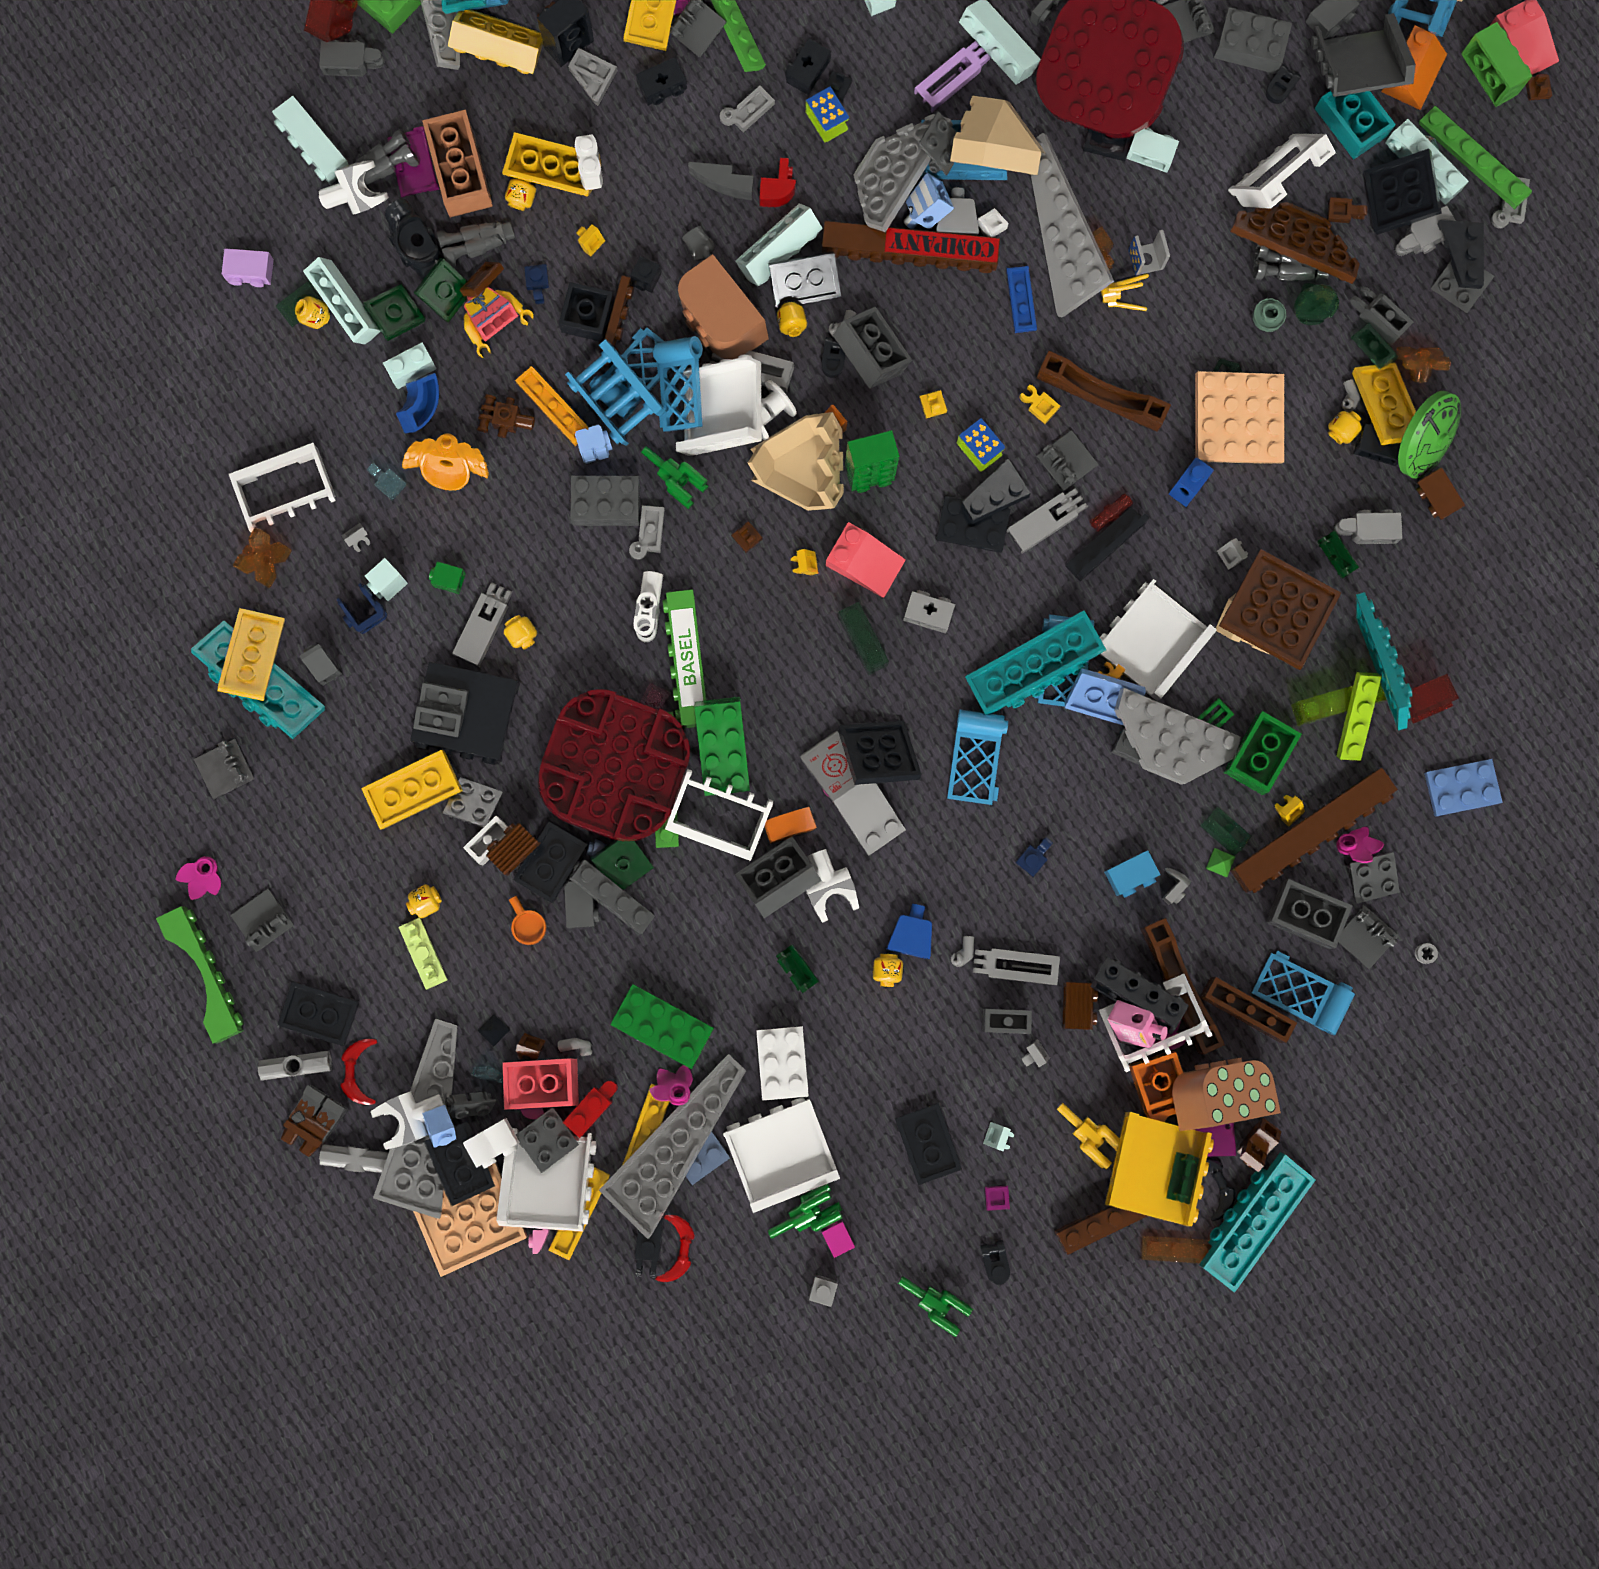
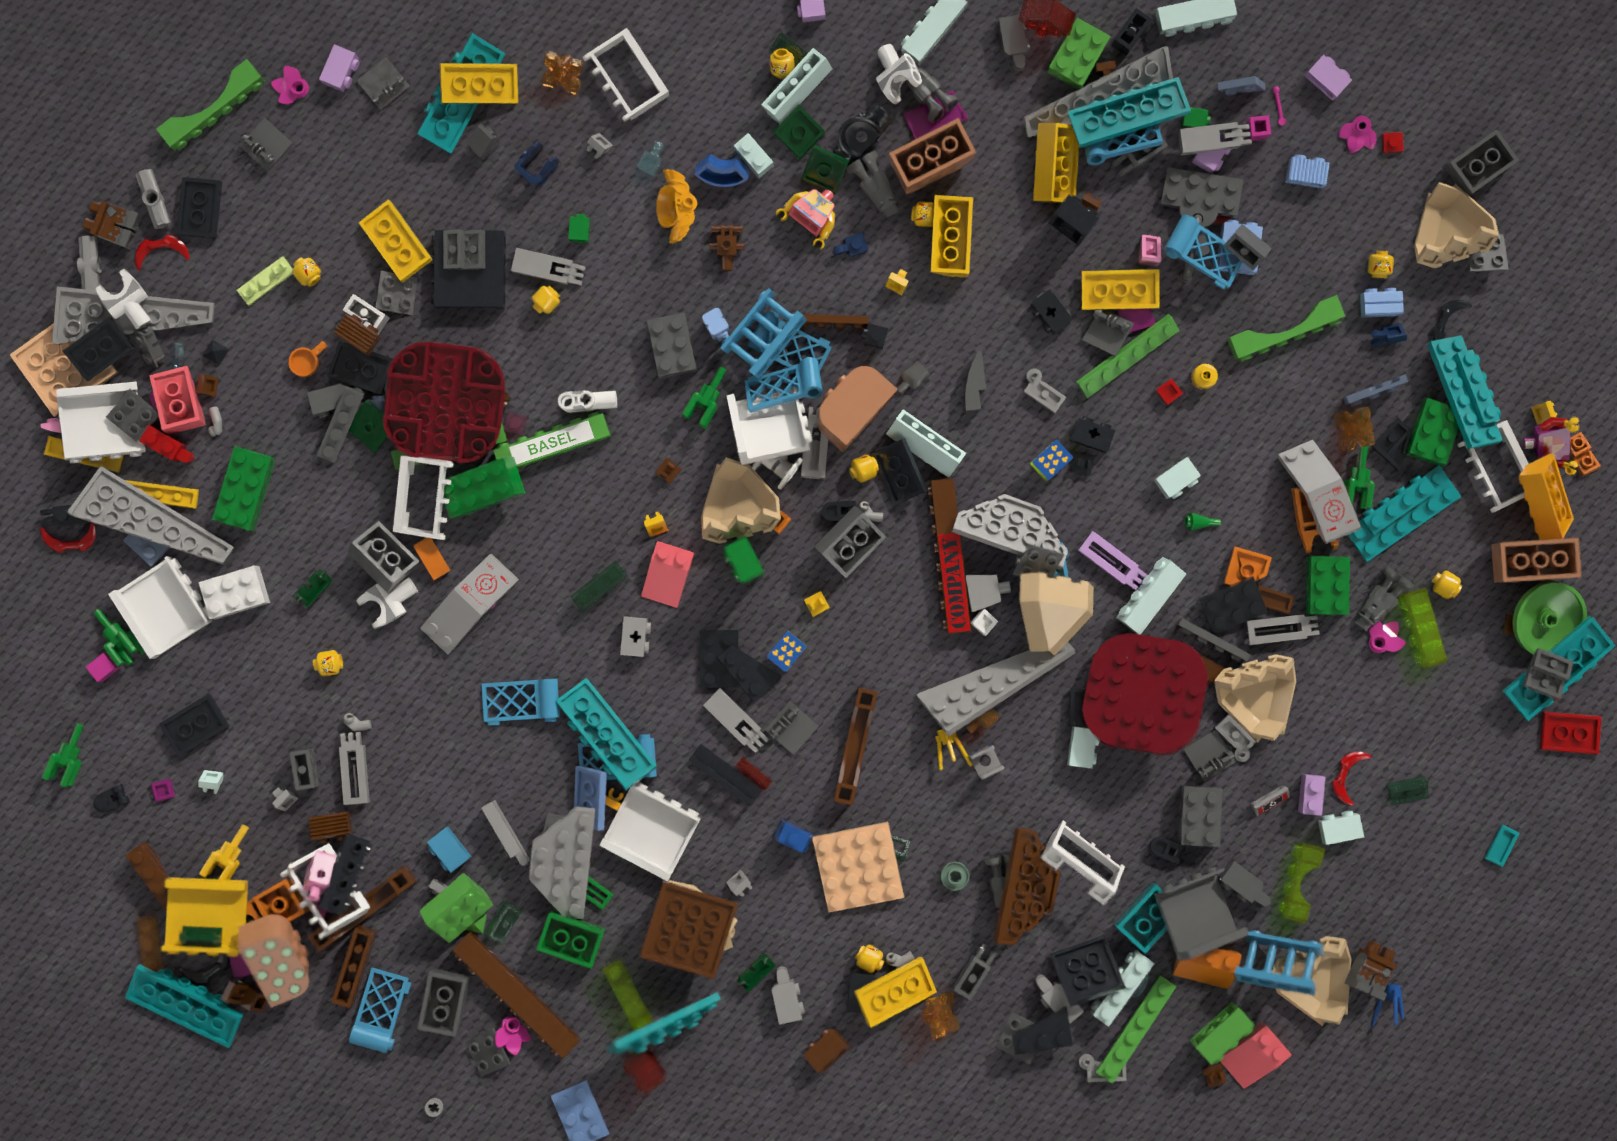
camera: 85 degrees right, 5 degrees up
(193, 814) = (339, 68): none -> lavender brick
(385, 580) = (563, 178): light aqua brick -> none
(439, 1126) = (121, 326): light blue brick -> none
(481, 279) = (841, 198): reddish brown tile -> none
(491, 1143) = (117, 371): white brick -> none
(551, 404) = (746, 283): light orange plate -> none
(586, 312) = (831, 293): black brick -> none
(588, 162) = (951, 267): white brick -> none
(592, 74) = (1046, 251): light grey wing -> none
(650, 532) = (655, 388): light grey hinge -> none
(670, 1084) = (199, 505): dark pink plate -> none
(779, 191) = (974, 433): red brick -> none
(823, 1290) = (59, 663): light grey brick -> none
(879, 752) = (503, 619): black plate -> none
(912, 934) = (361, 677): blue torso -> none
(928, 203) = (989, 563): light blue torso -> none
(1021, 299) = (925, 660): blue tile -> none
(1033, 859) = (445, 765): dark blue plate -> none
(1041, 406) = (833, 696): yellow plate -> none
(1125, 804) = (505, 832): none -> light grey hinge
(1203, 875) = (456, 908): none -> bright green brick
(1291, 811) = (529, 973): yellow tile -> none
(1315, 303) = (971, 914): clear green tile -> none
(1342, 210) = (1064, 921): reddish brown plate -> none
(1358, 716) = (617, 1014): lime plate -> none
(1367, 937) = (437, 1055): dark grey hinge -> none
(1374, 346) = (946, 971): clear green slope -> none
(1429, 434) = (870, 1030): bright green dish -> none

